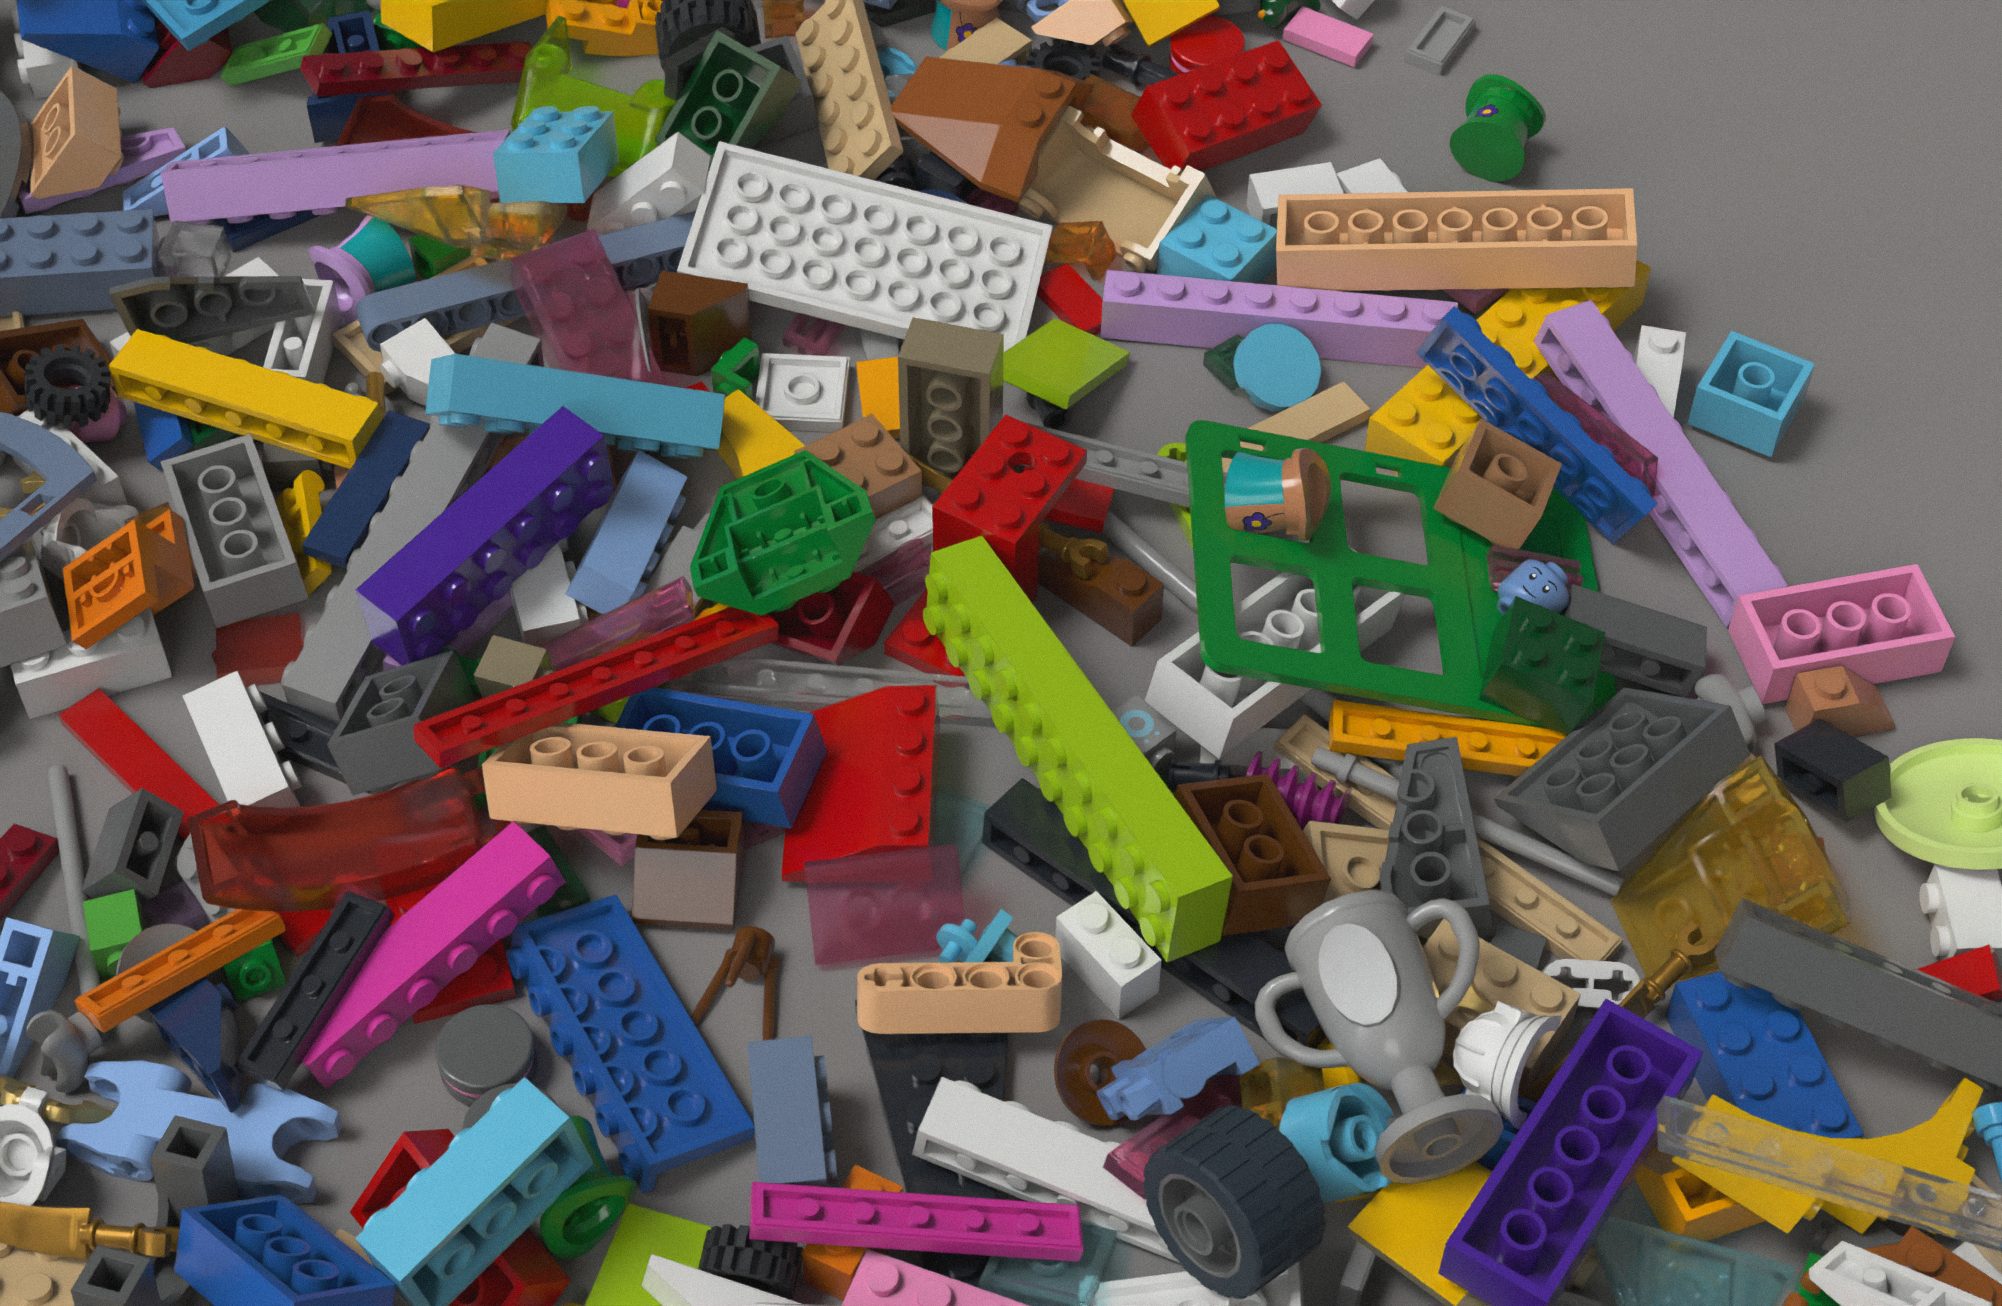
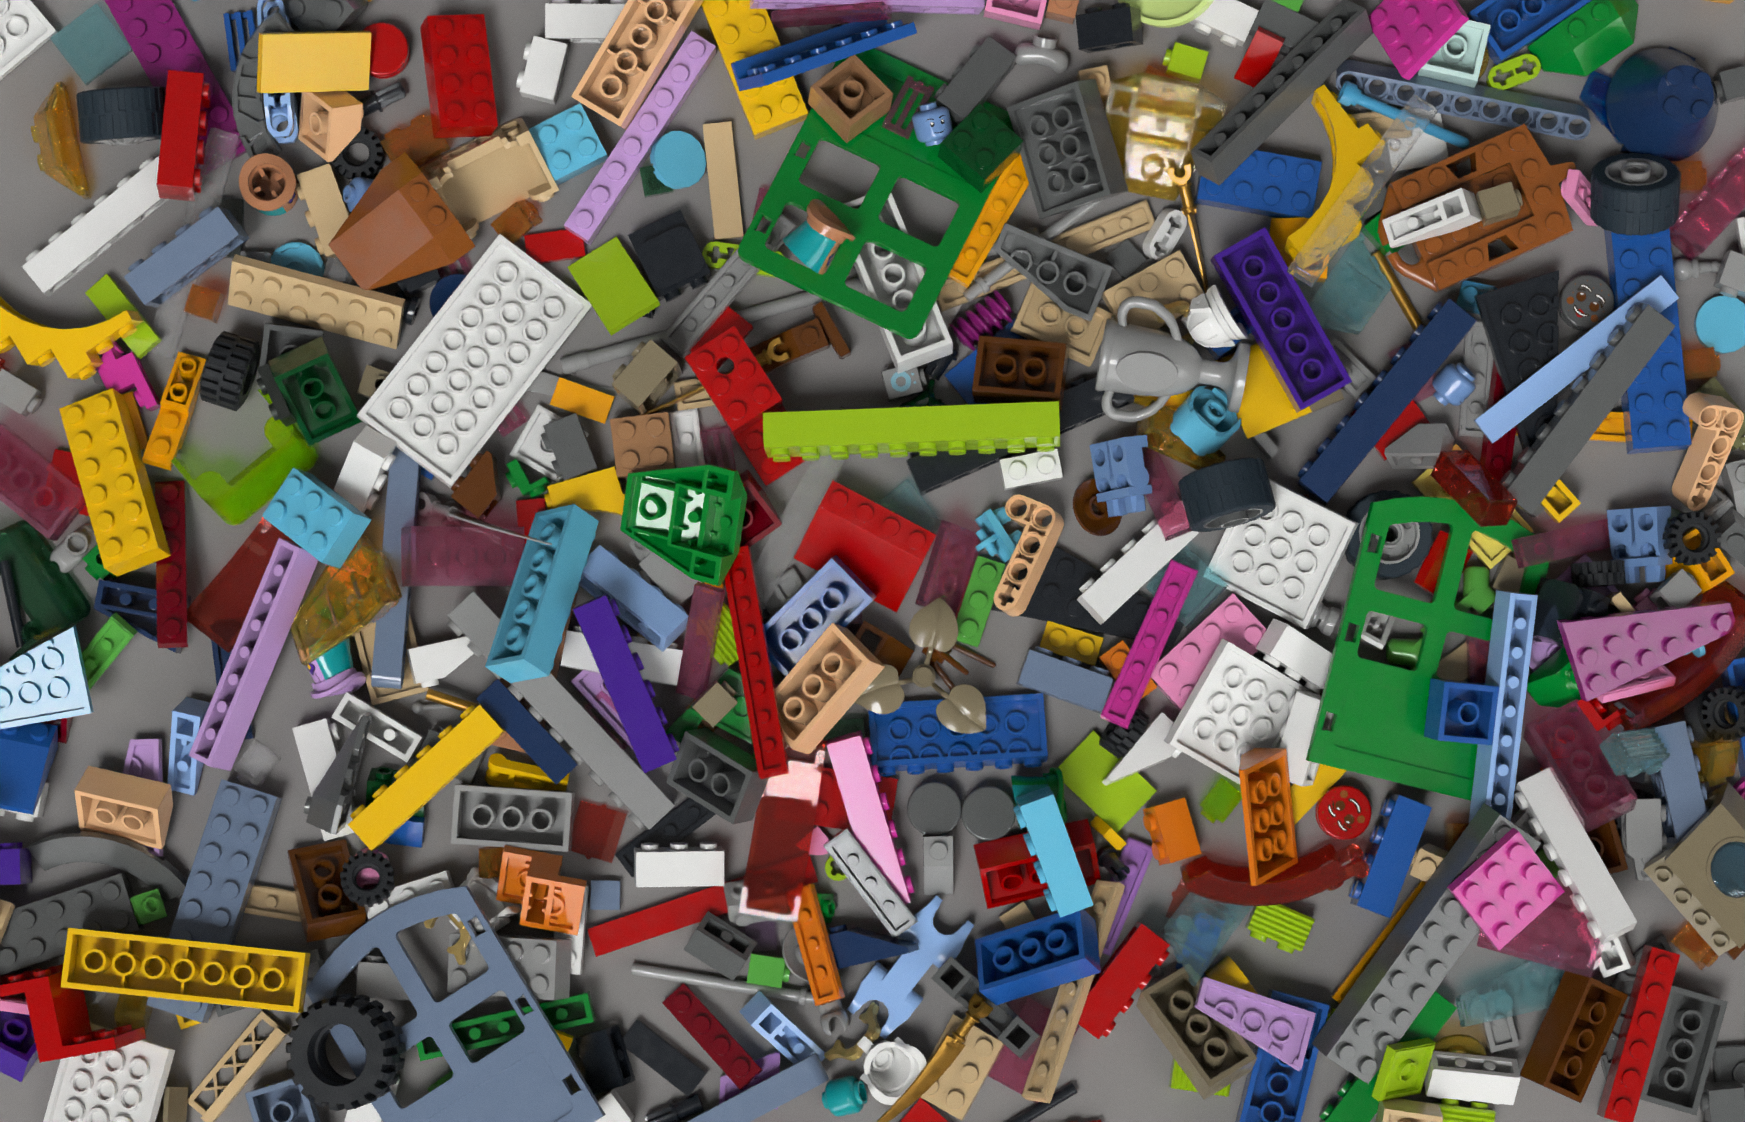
camera: 70 degrees left, 35 degrees up
(161, 694) = (605, 895): none -> sand blue tile
(396, 1097) = (938, 865): none -> light grey slope
(669, 984) = (962, 708): none -> dark tan plant
(810, 393) = (570, 447): none -> dark grey brick
(831, 983) = (978, 600): none -> bright green plate
(860, 1132) = (1071, 643): none -> yellow plate
(1141, 402) = (670, 256): none -> black brick
(1157, 626) = (831, 331): none -> reddish brown tile
(1872, 896) = (1185, 62): none -> lime brick

